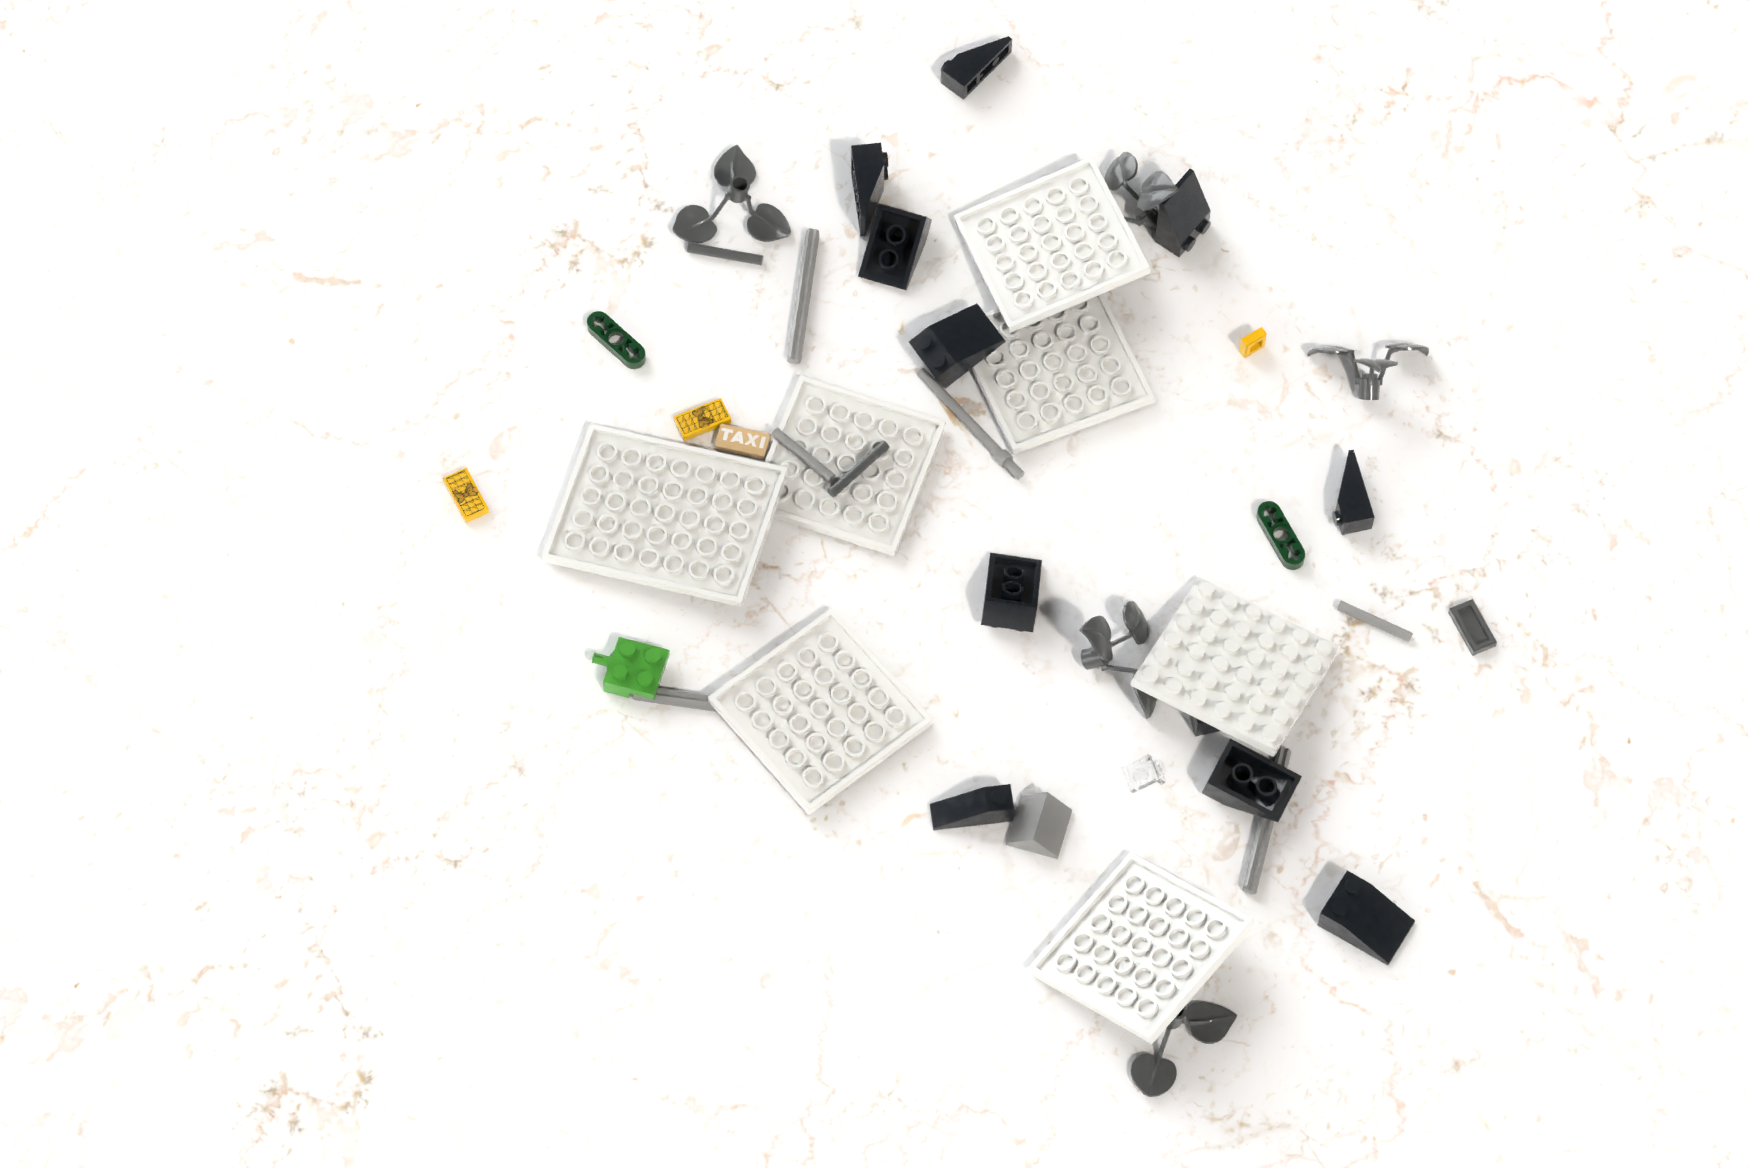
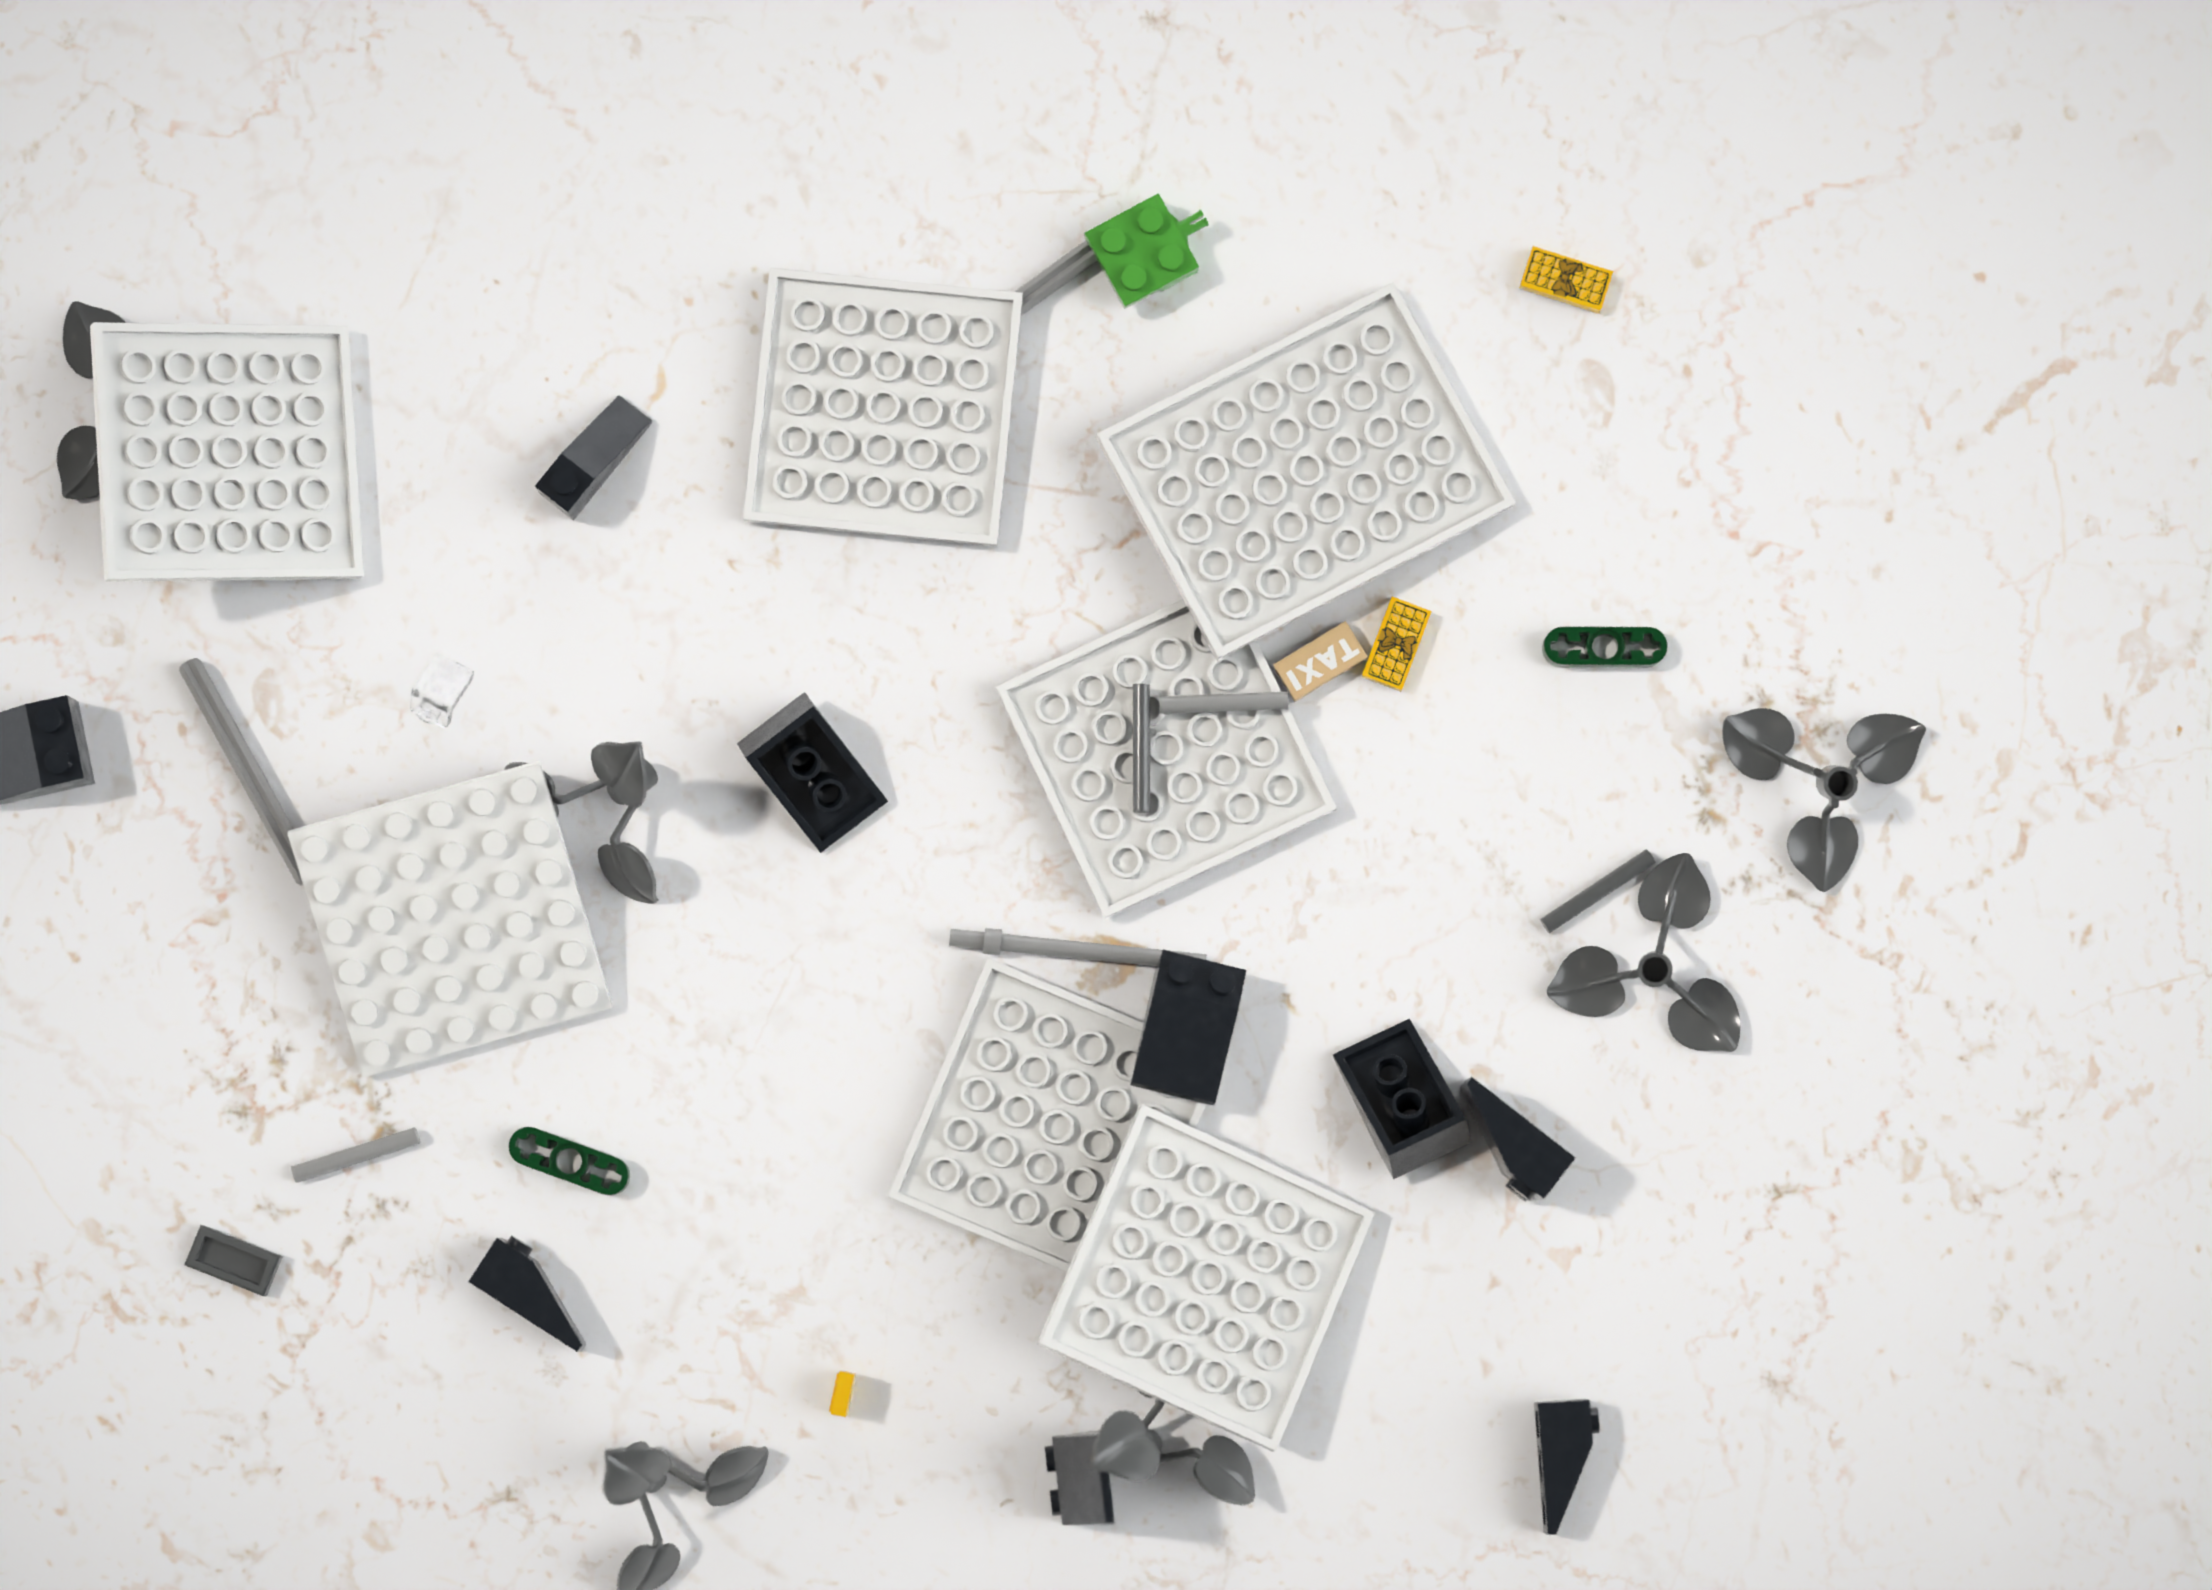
camera: 135 degrees right, 20 degrees up
(614, 189) = (1825, 845): none -> dark grey plant
(803, 296) = (1446, 925): light grey axle -> none
(1039, 824) = (501, 512): light grey slope -> none
(1251, 782) = (297, 786): black slope -> none

